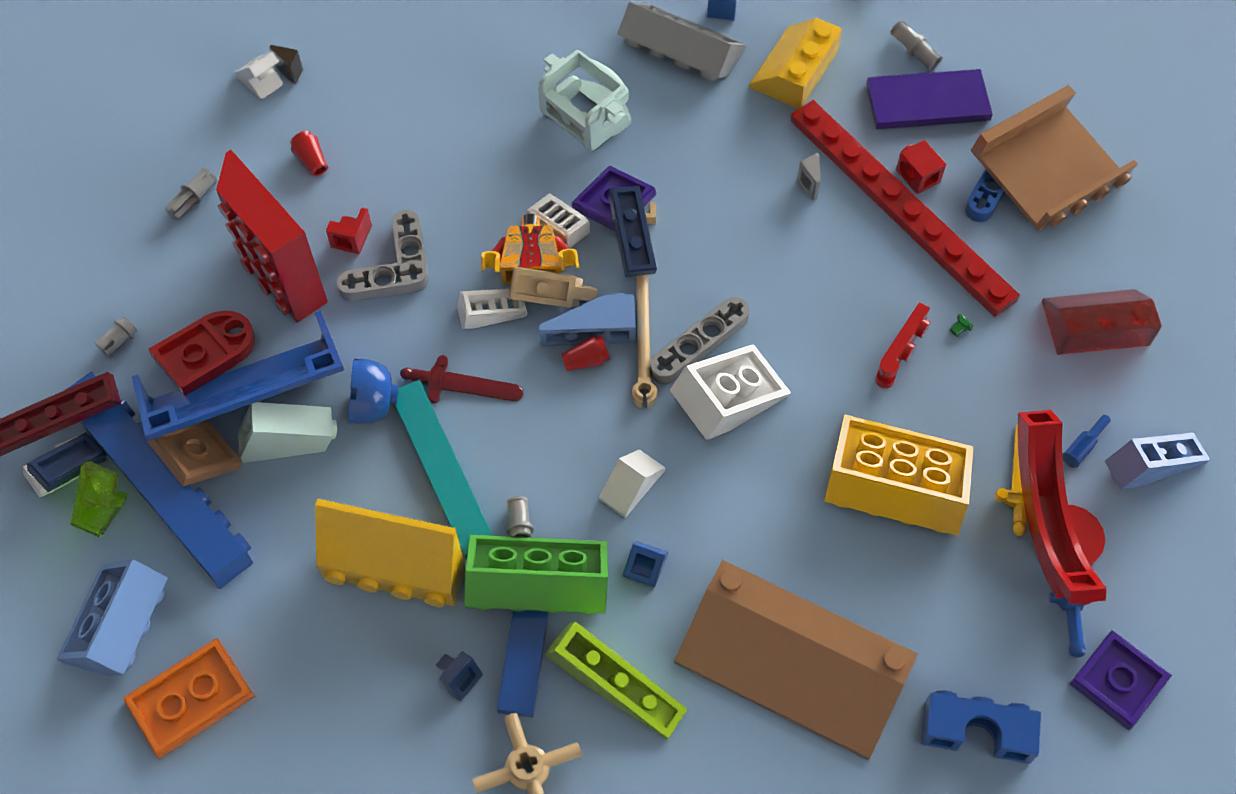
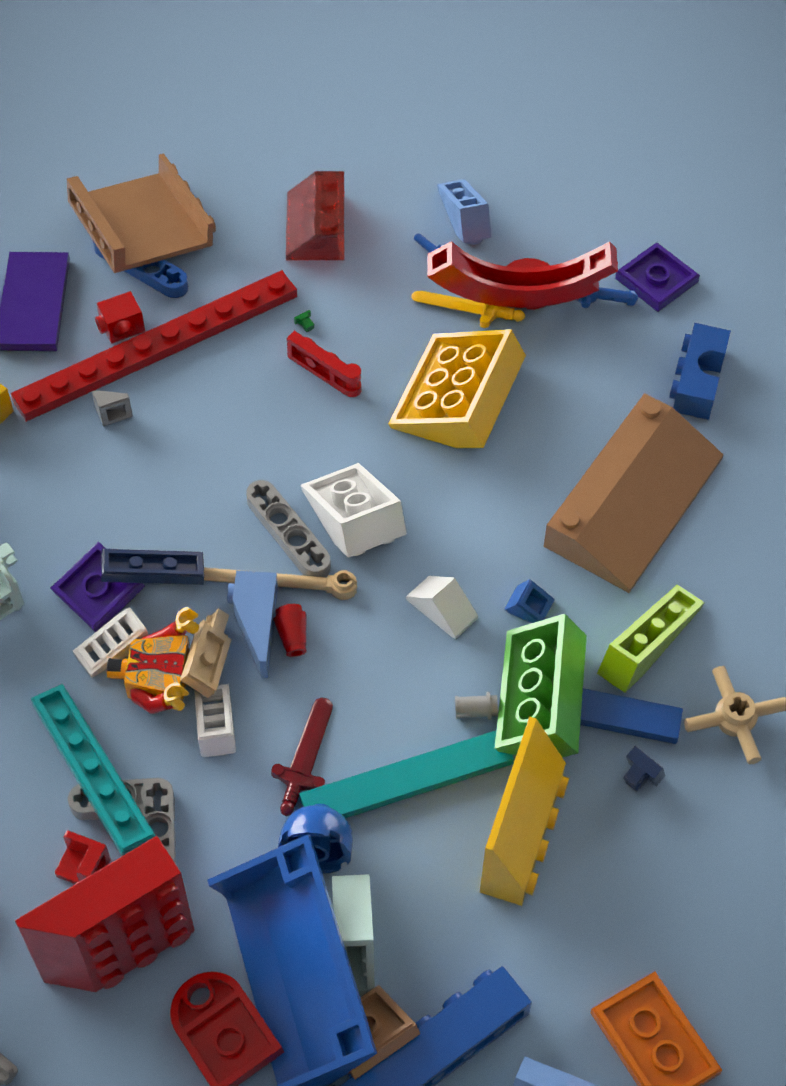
camera: 85 degrees left, 5 degrees down
(428, 222) = (92, 769): none -> teal tile

